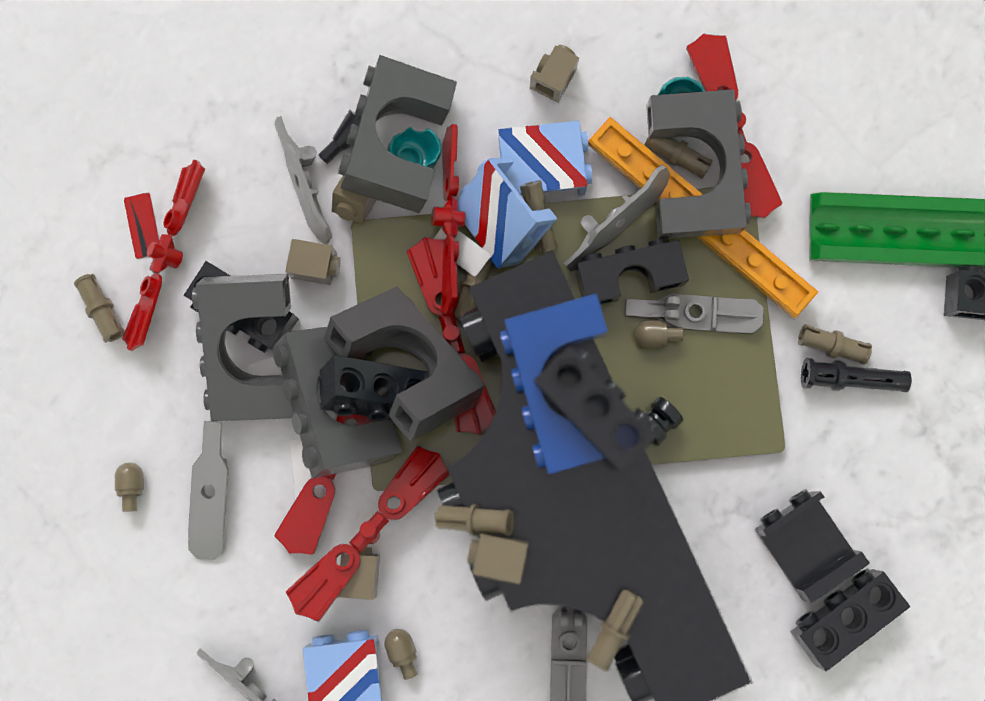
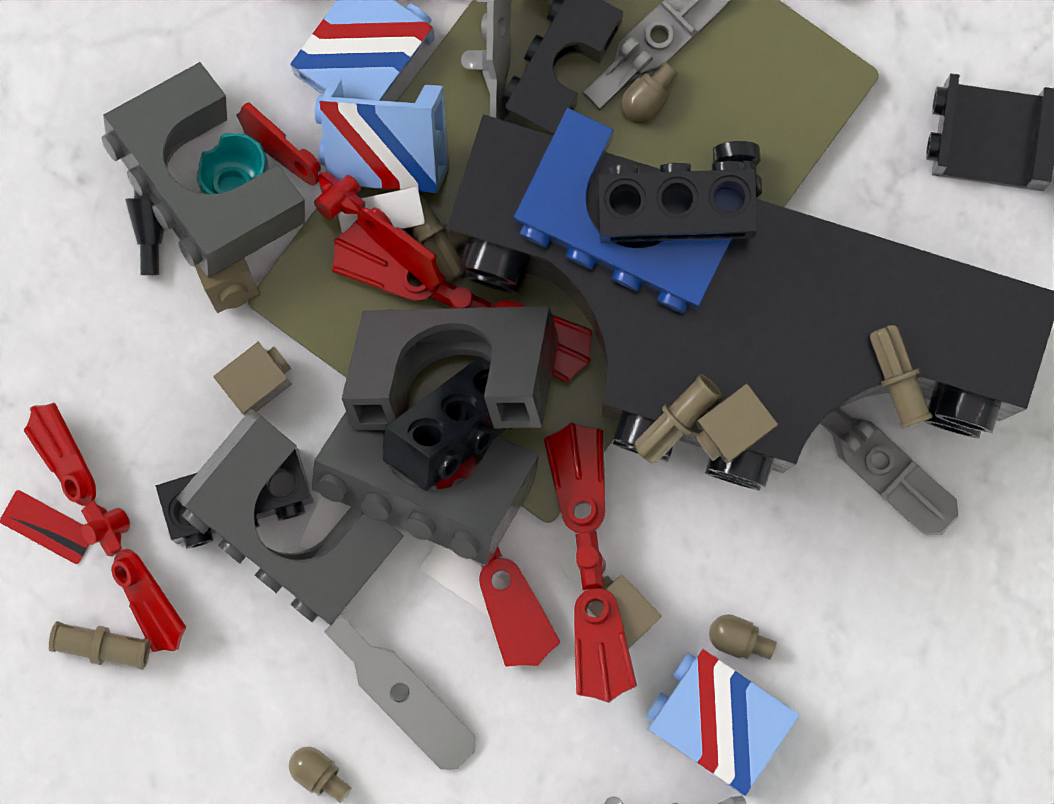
camera: 45 degrees left, 0 degrees up
(295, 160) = (158, 317): light grey piece -> none
(535, 199) = (398, 89): dark tan pin -> none

